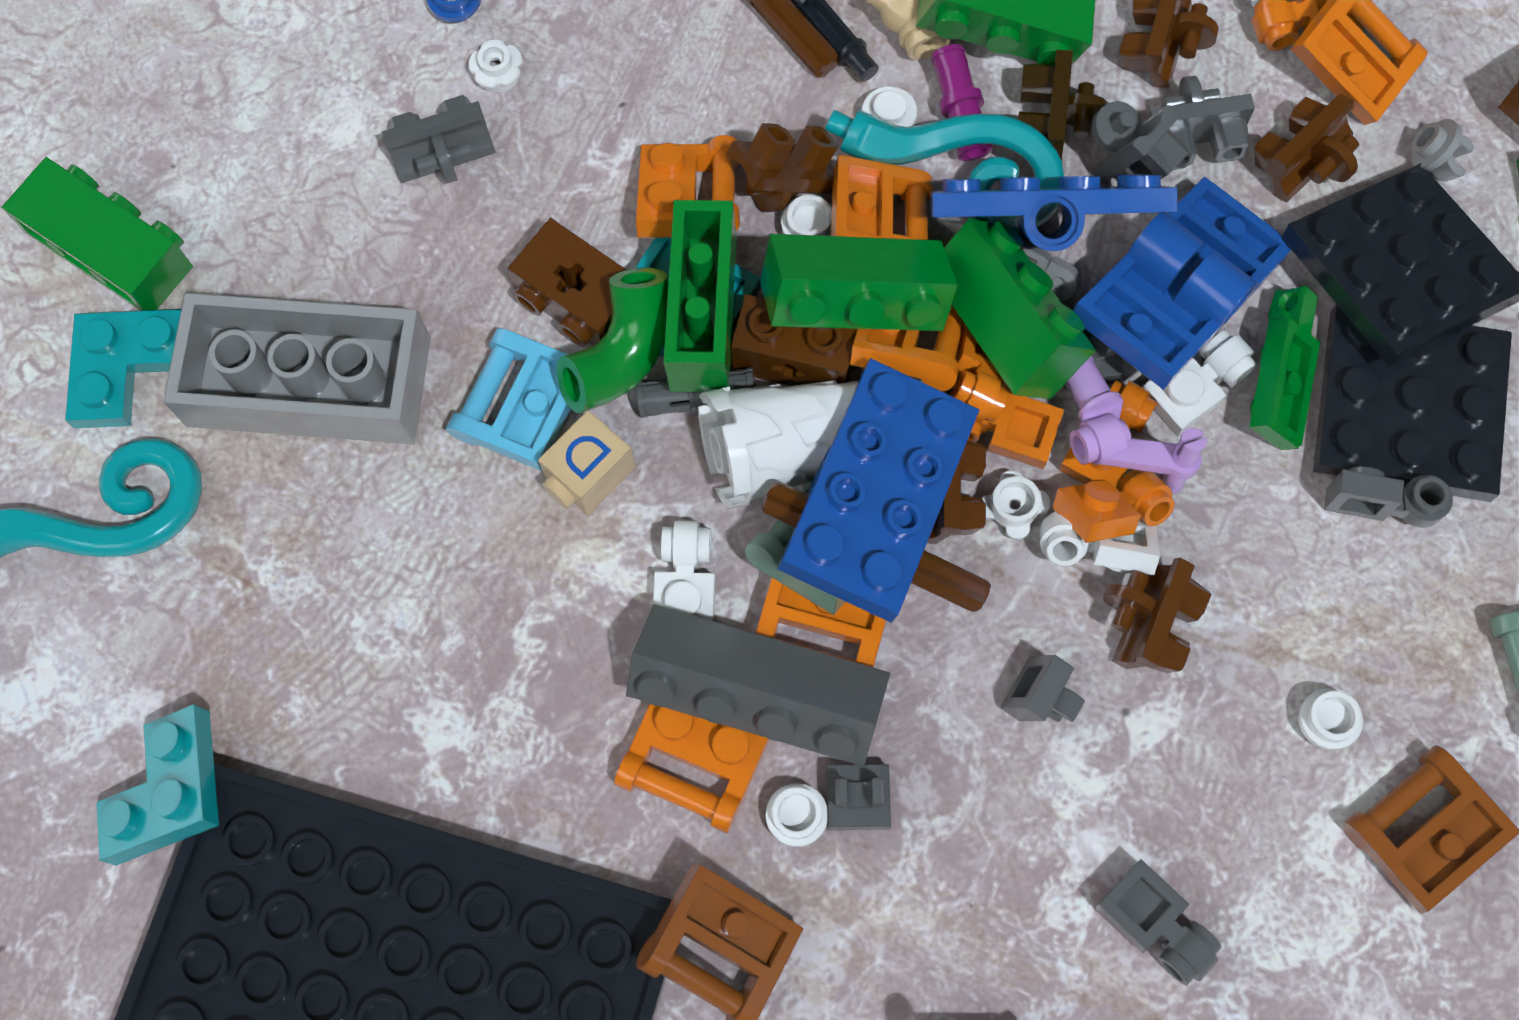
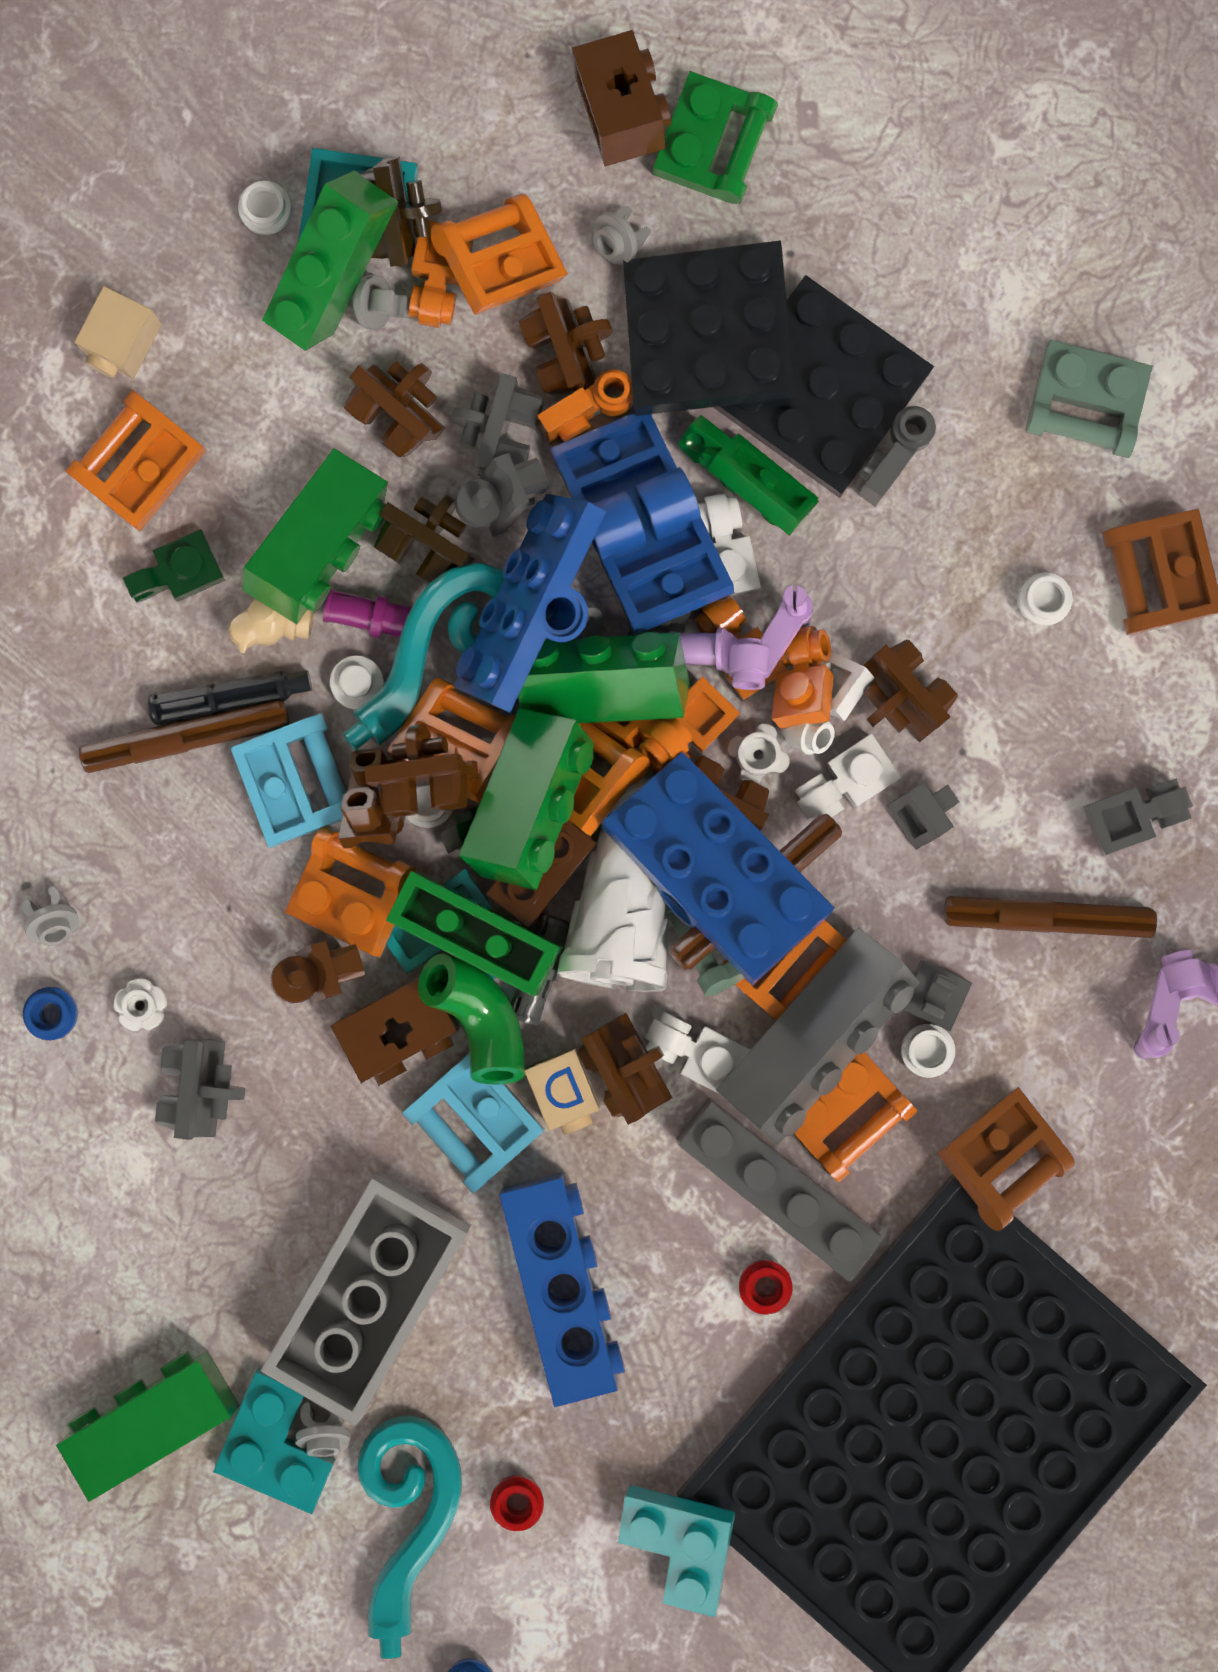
camera: 70 degrees left, 15 degrees up
(137, 599) = (517, 1519): none -> red plate
(144, 393) = (321, 1438): none -> light grey plate
(350, 552) = (569, 1373): none -> blue brick
(457, 749) = (765, 1303): none -> red plate
(579, 720) = (779, 1189): none -> dark grey brick
(595, 188) = (315, 973): none -> reddish brown hips
(635, 511) = (626, 1069): none -> reddish brown hips
(761, 83) = (278, 787): none -> medium azure plate
(838, 172) = (444, 774): none -> reddish brown hips
(1002, 881) = (1050, 916): none -> reddish brown axle
(1047, 614) = (857, 774): none -> white plate
(1254, 183) = (571, 415): none -> orange plate

